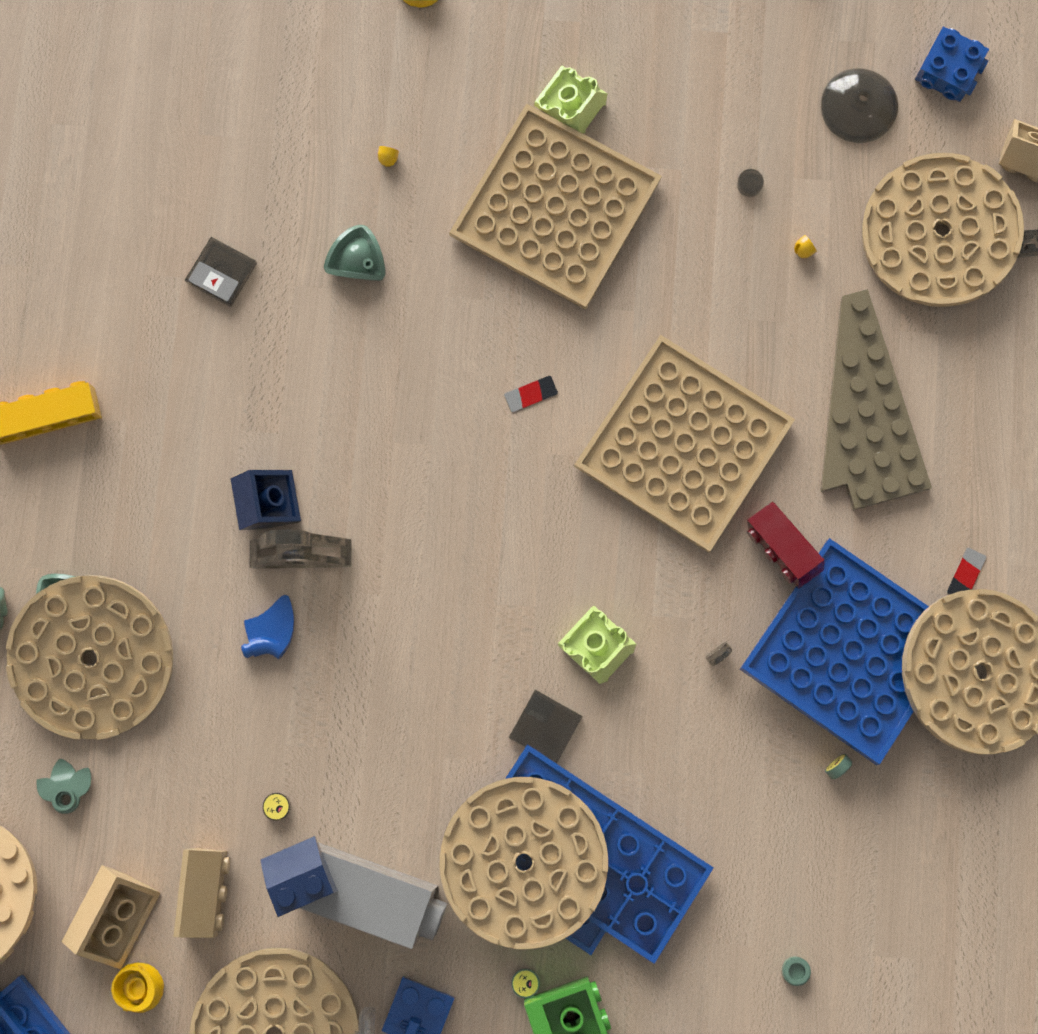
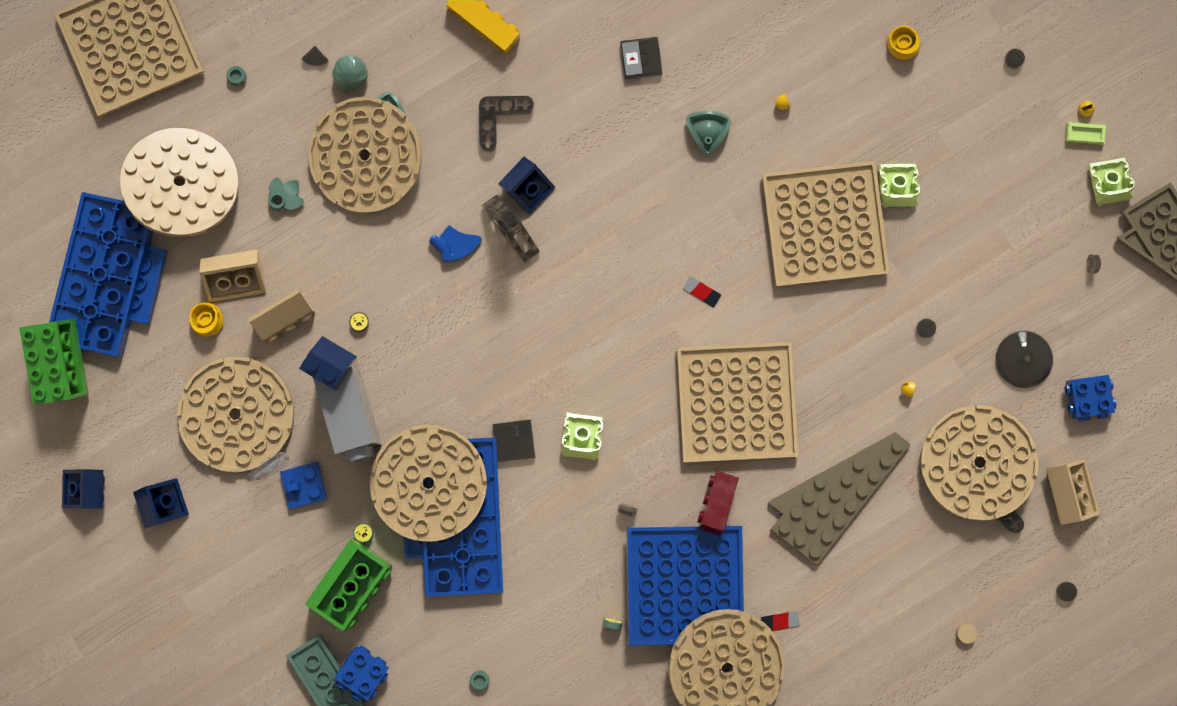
camera: 45 degrees right, 5 degrees up
(155, 480) = (491, 115): none -> clear smoke beam

